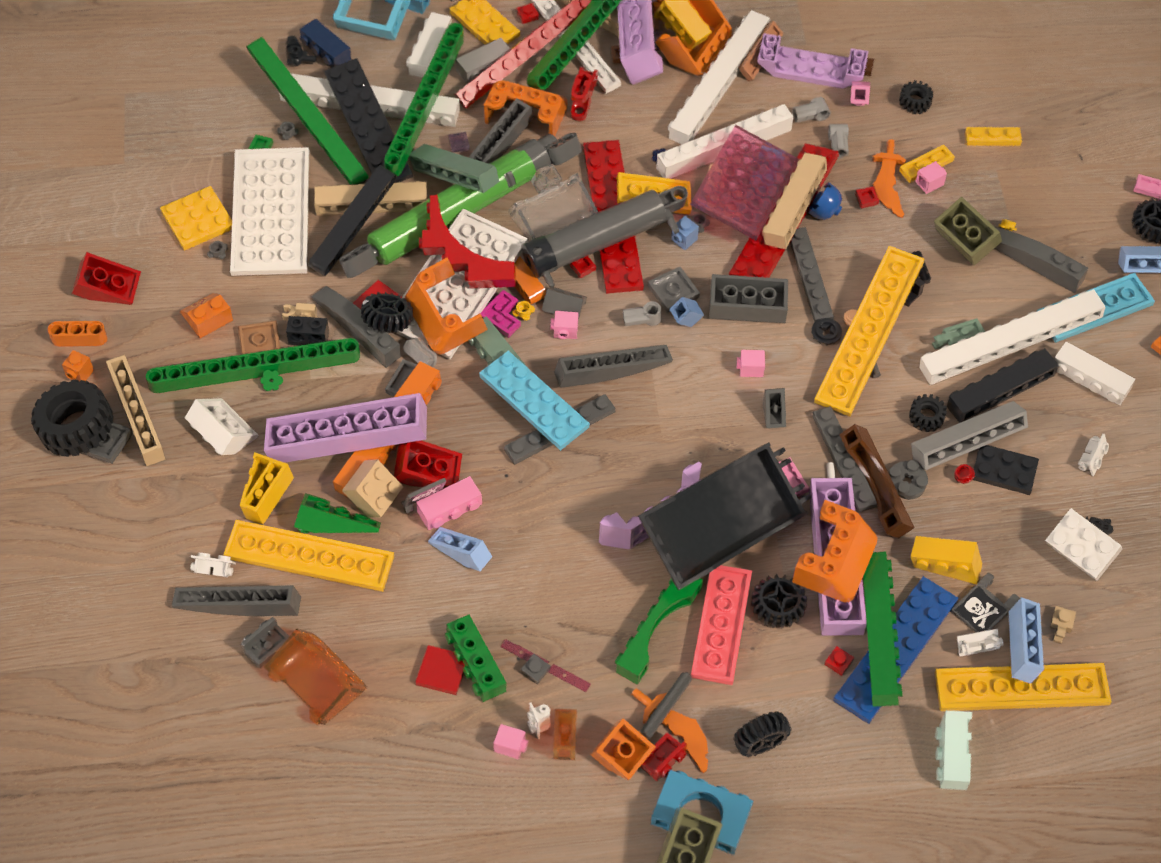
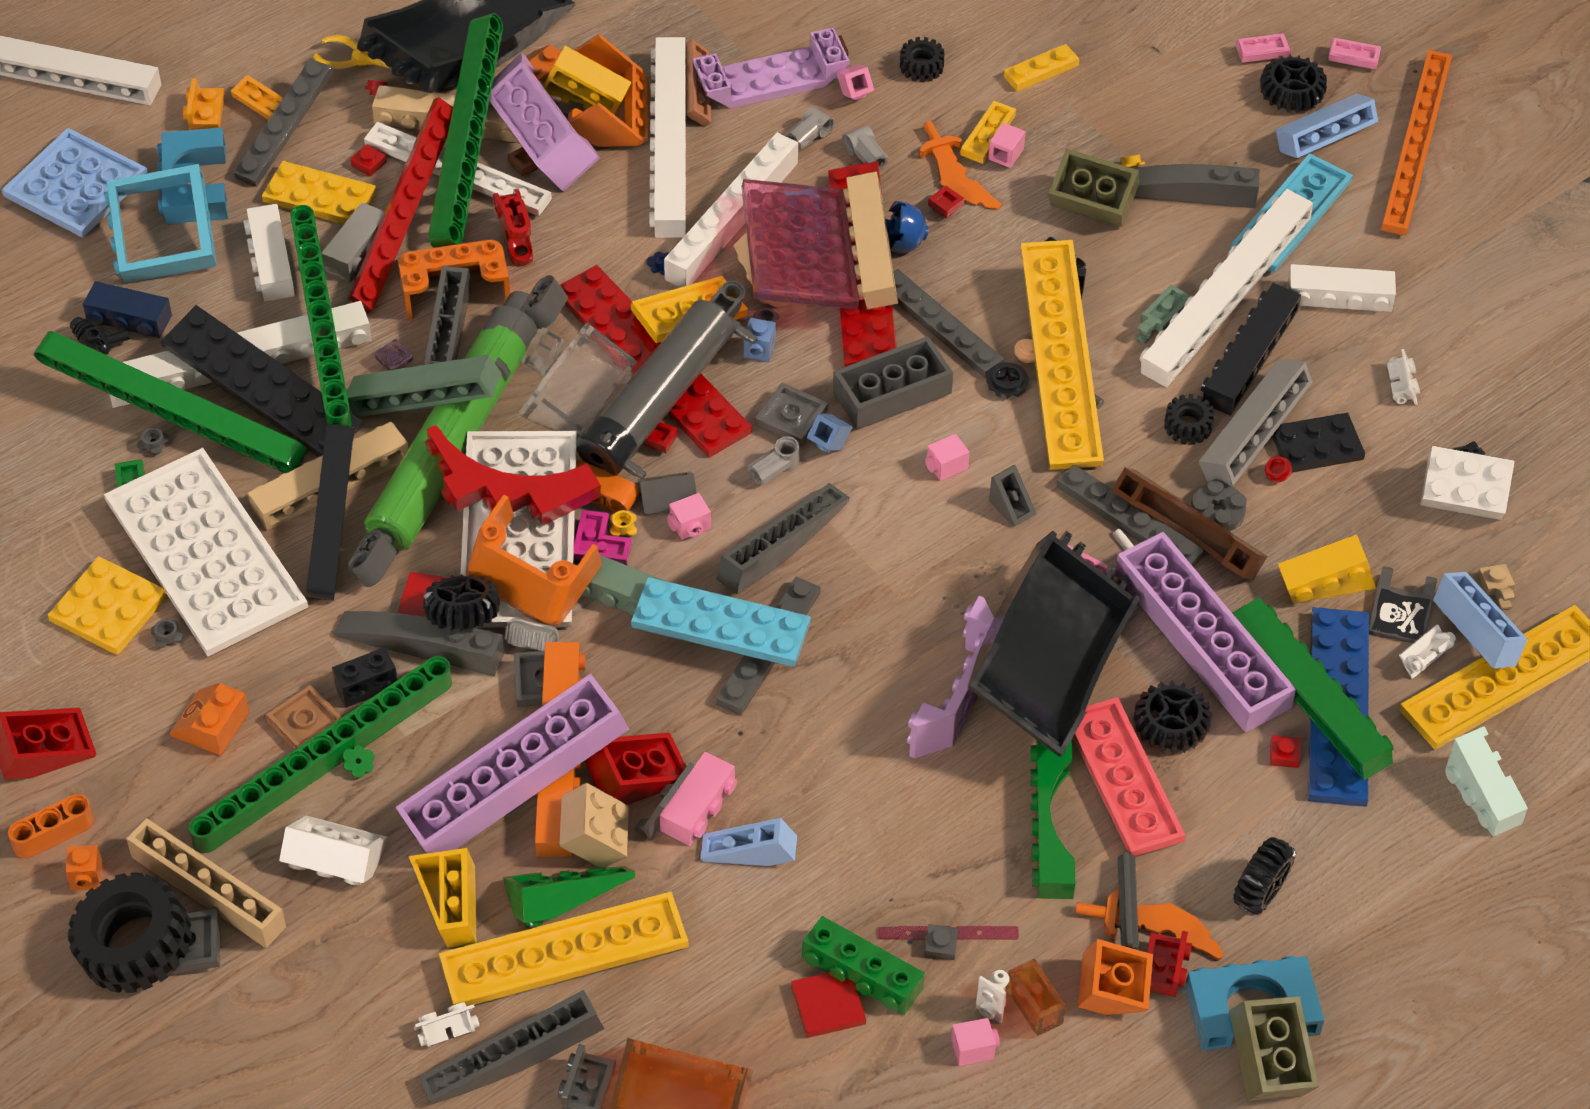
camera: 30 degrees left, 5 degrees down
(300, 310) = (337, 654): tan plate -> none
(845, 559) = (1231, 641): orange windscreen -> none

